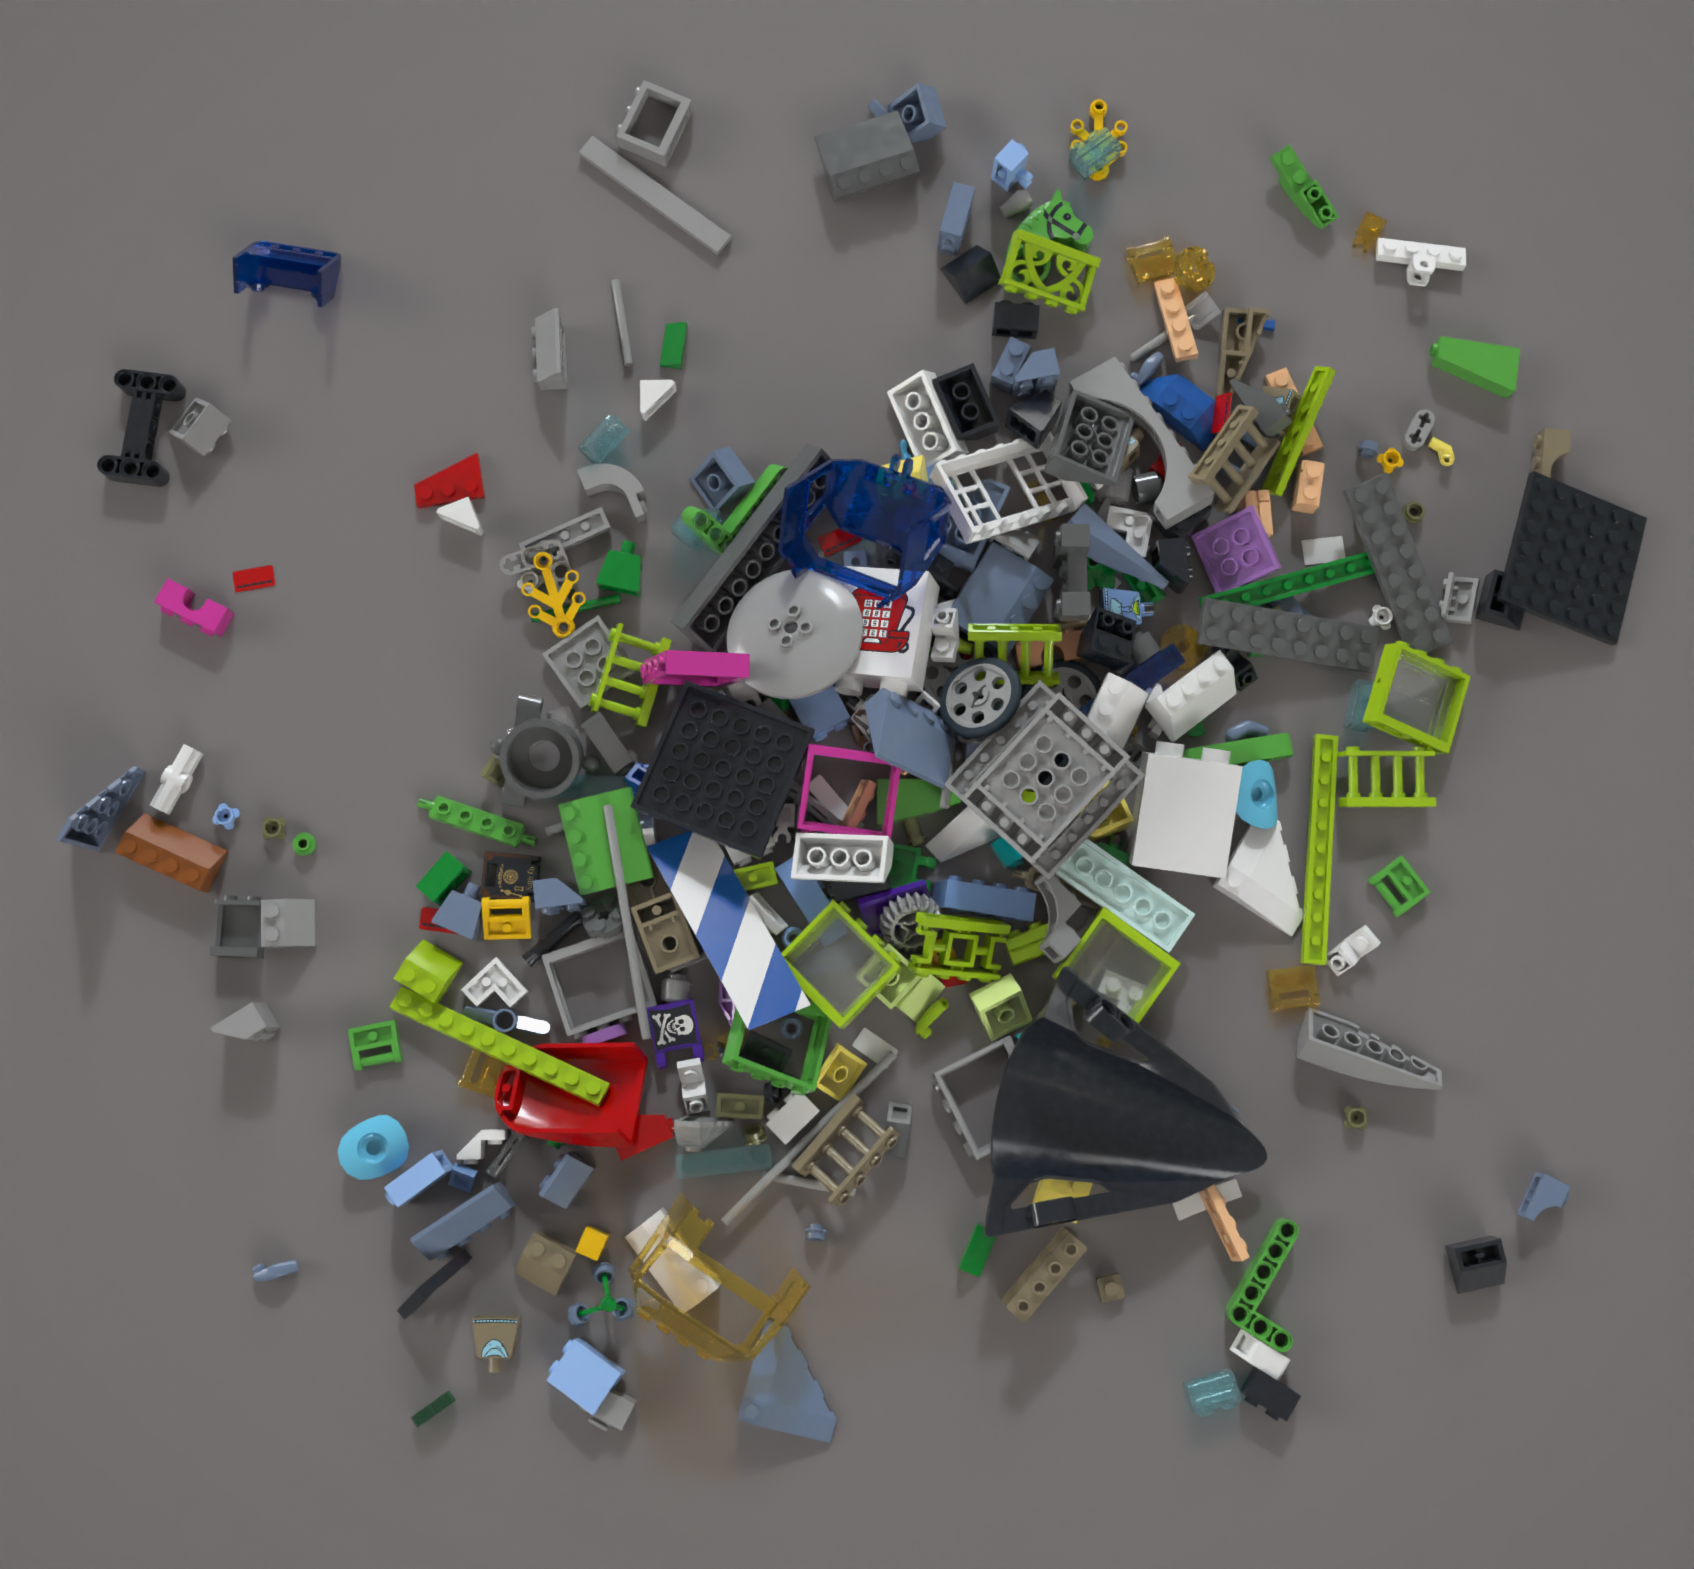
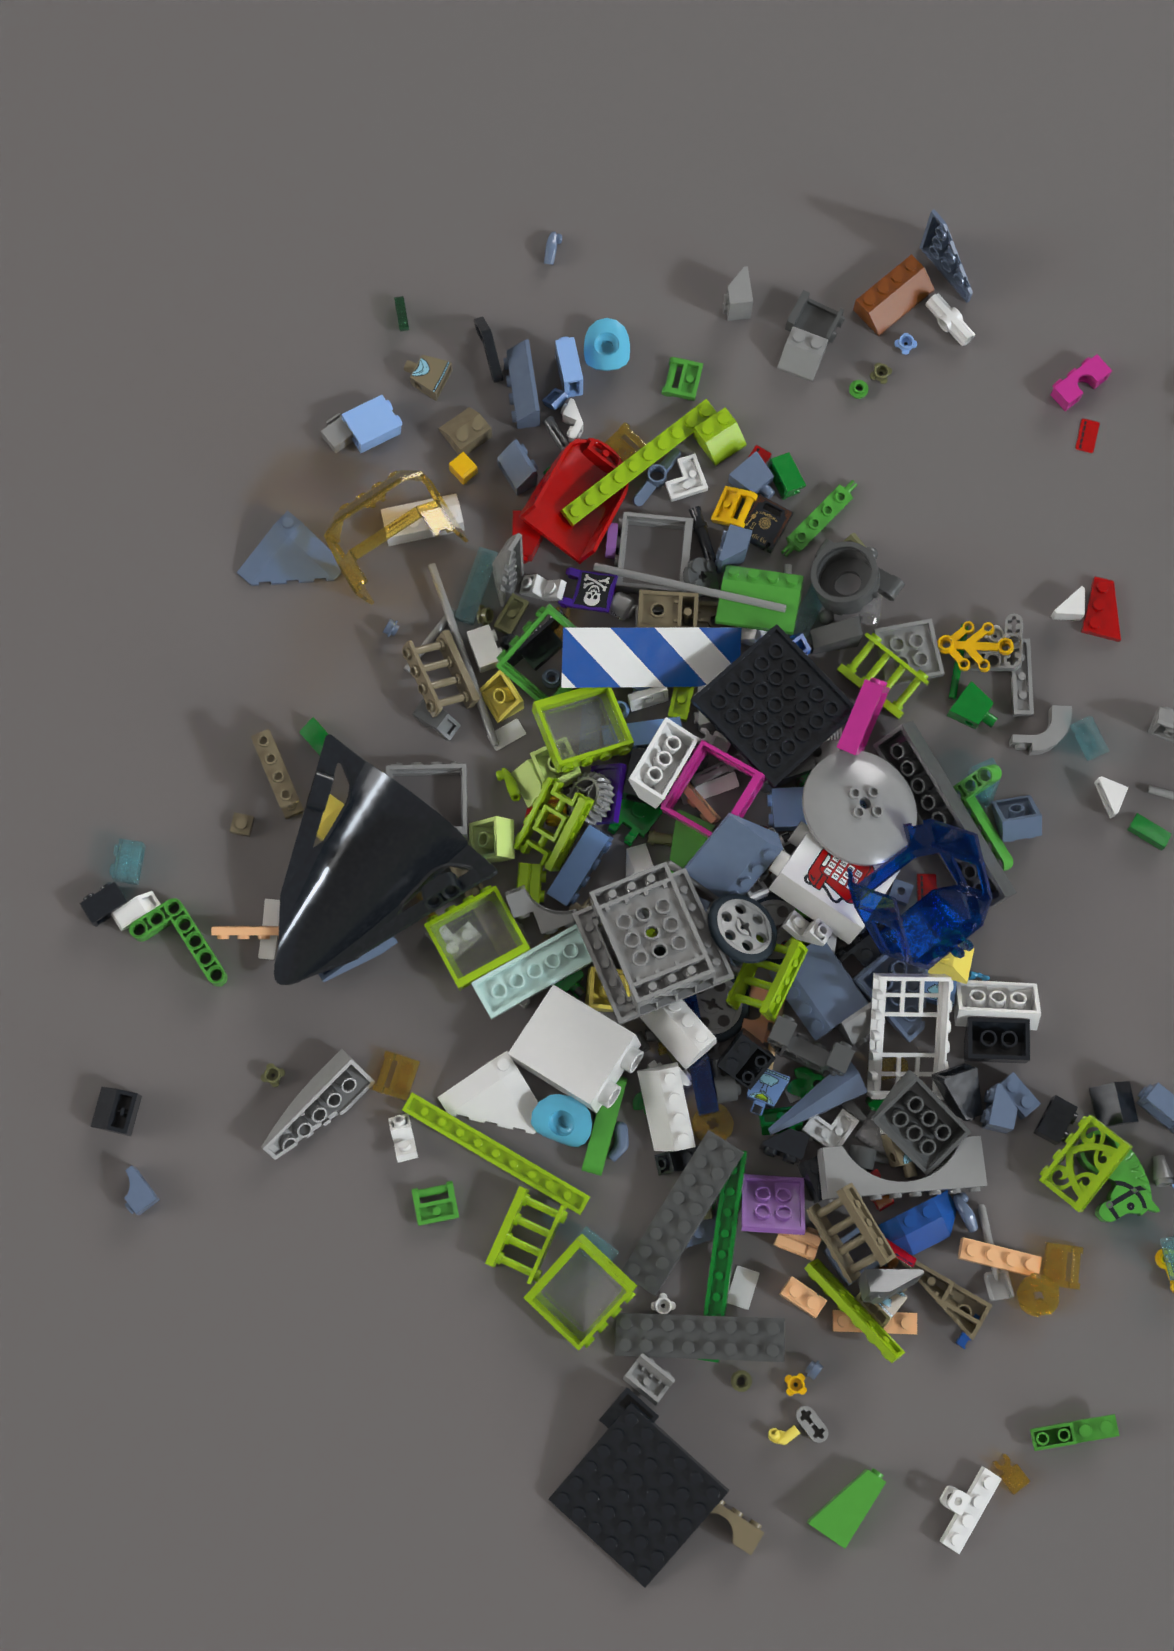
camera: 115 degrees right, 5 degrees down
(621, 1308) = (416, 439): sand blue plant -> none

